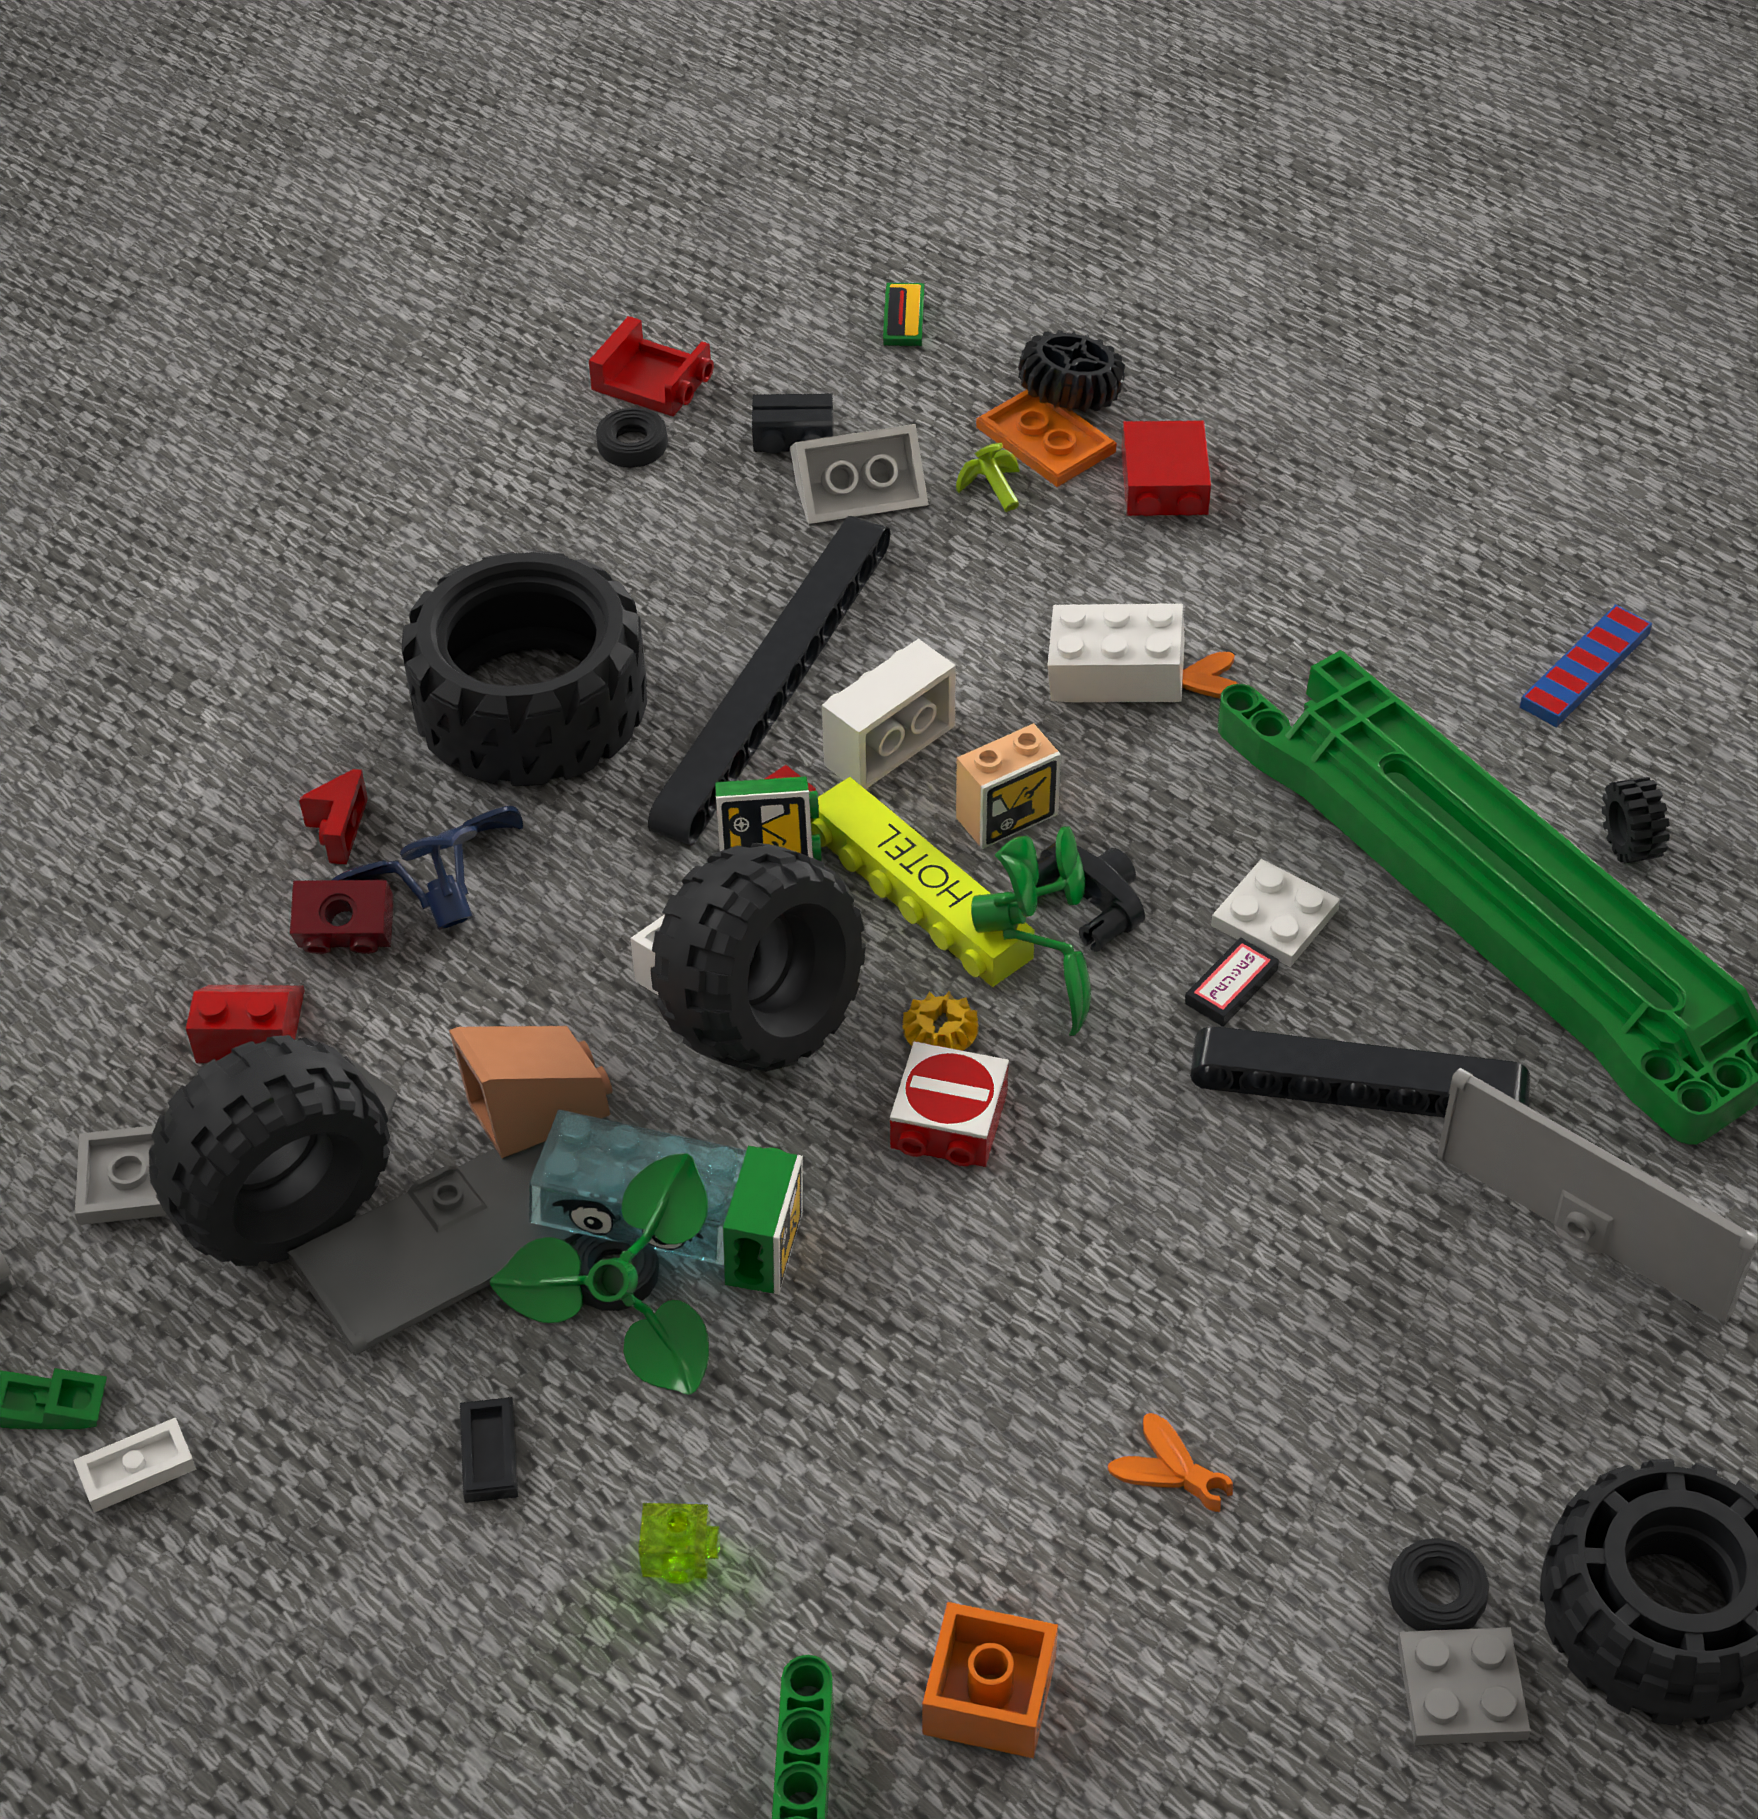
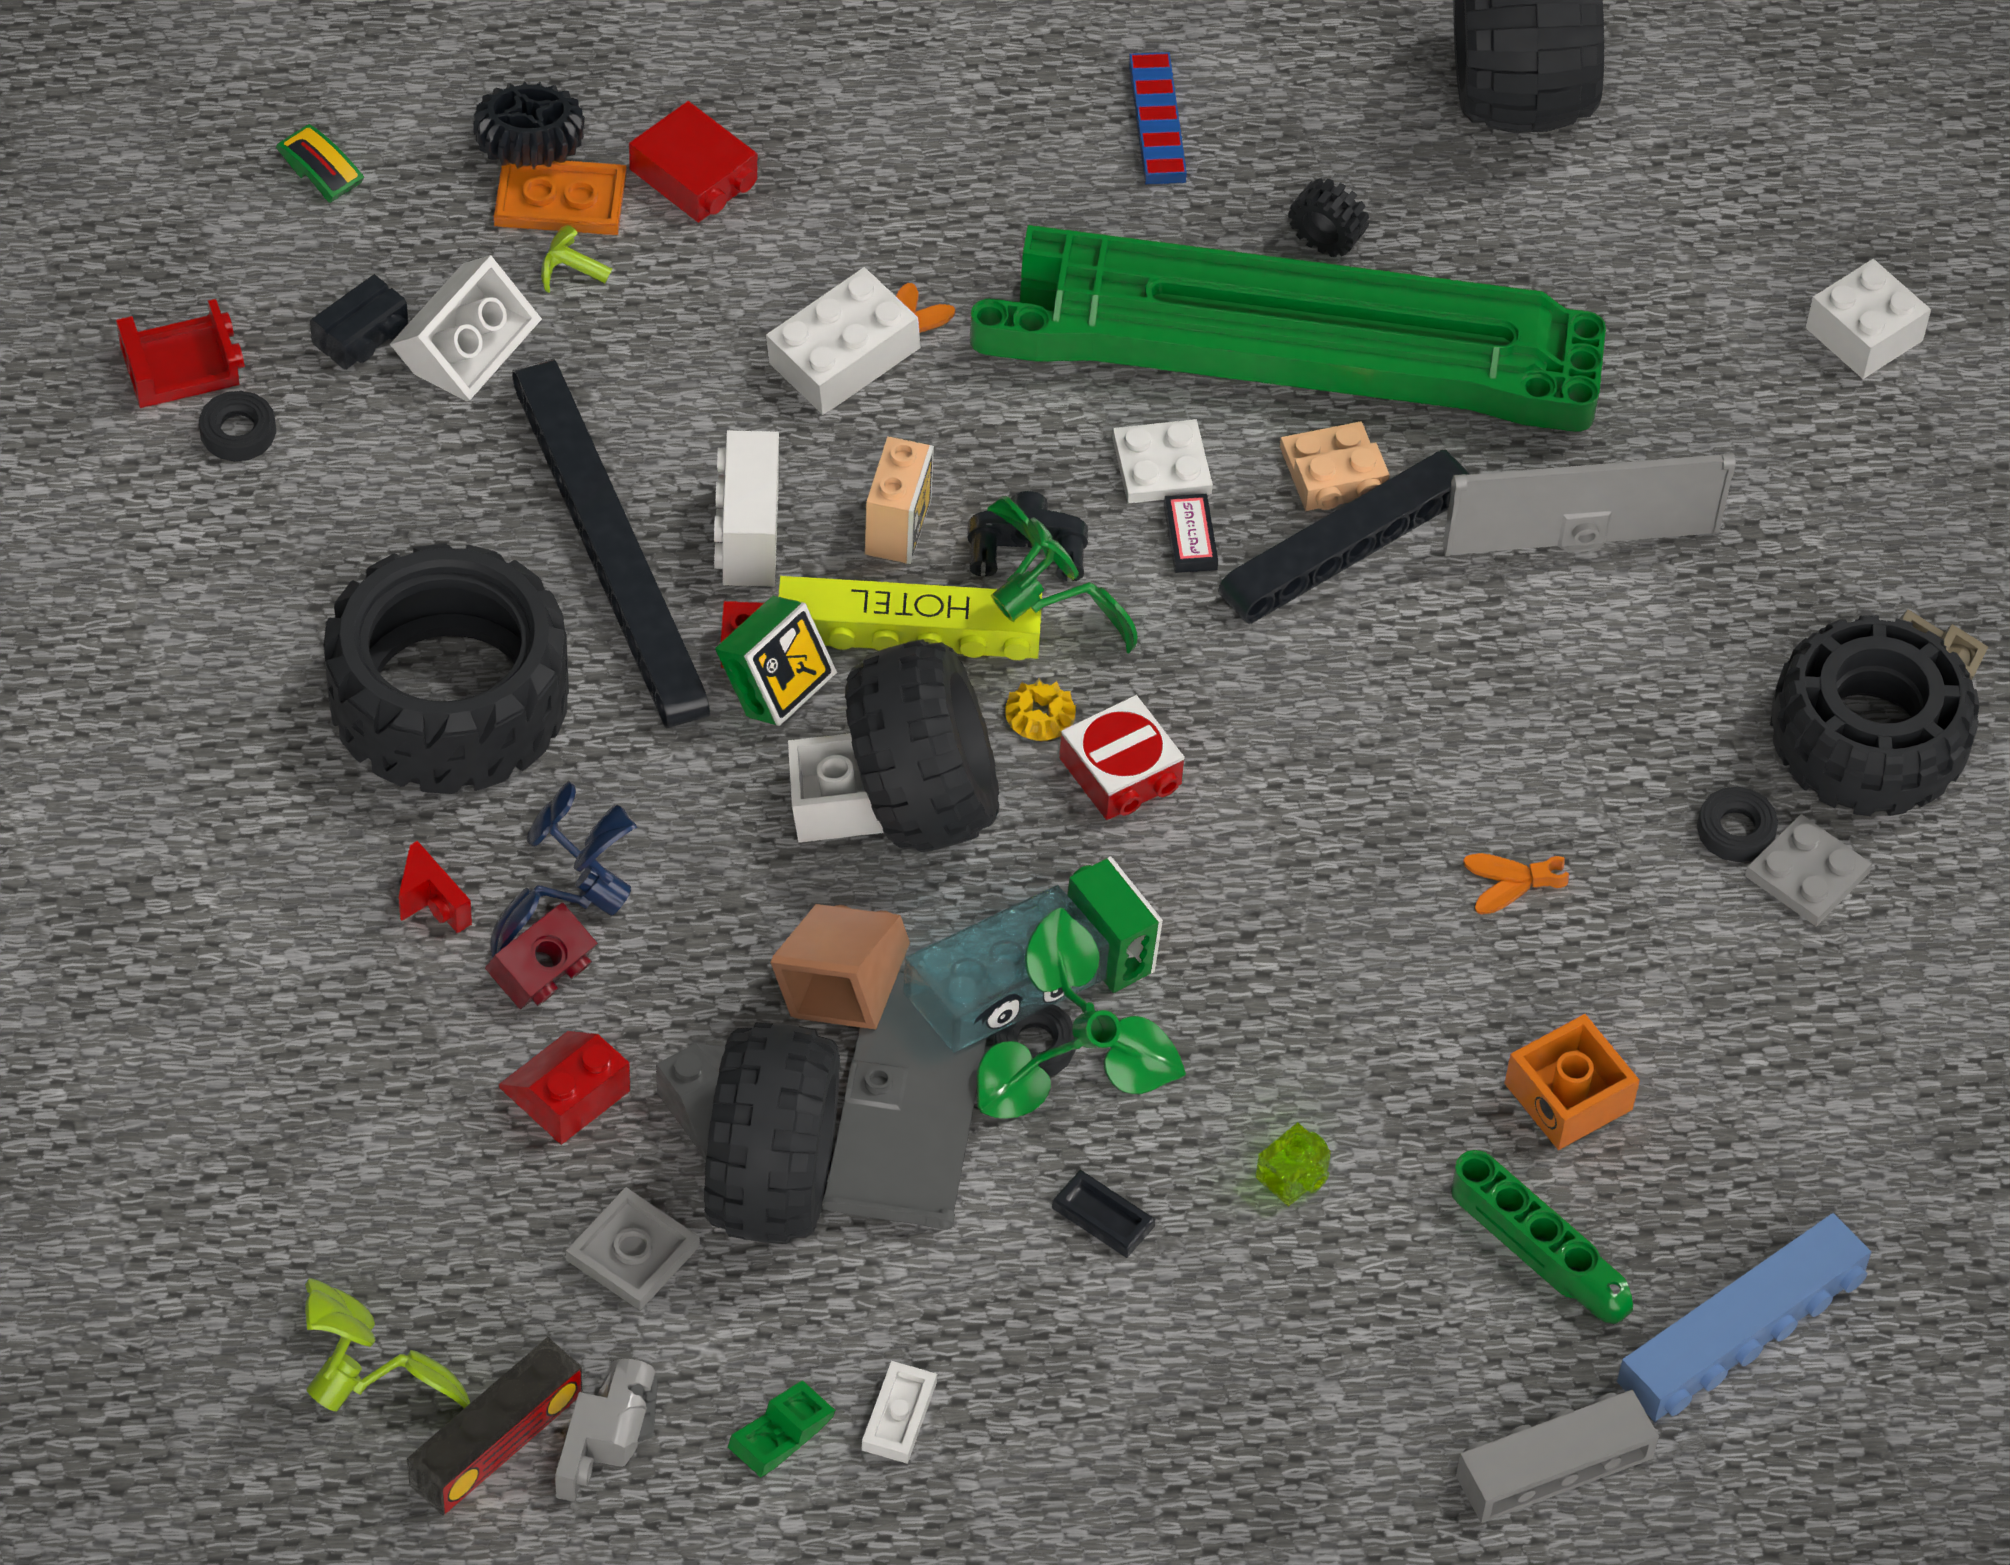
camera: 50 degrees left, 5 degrees up
(1418, 1012) = (1333, 465): none -> light nougat plate

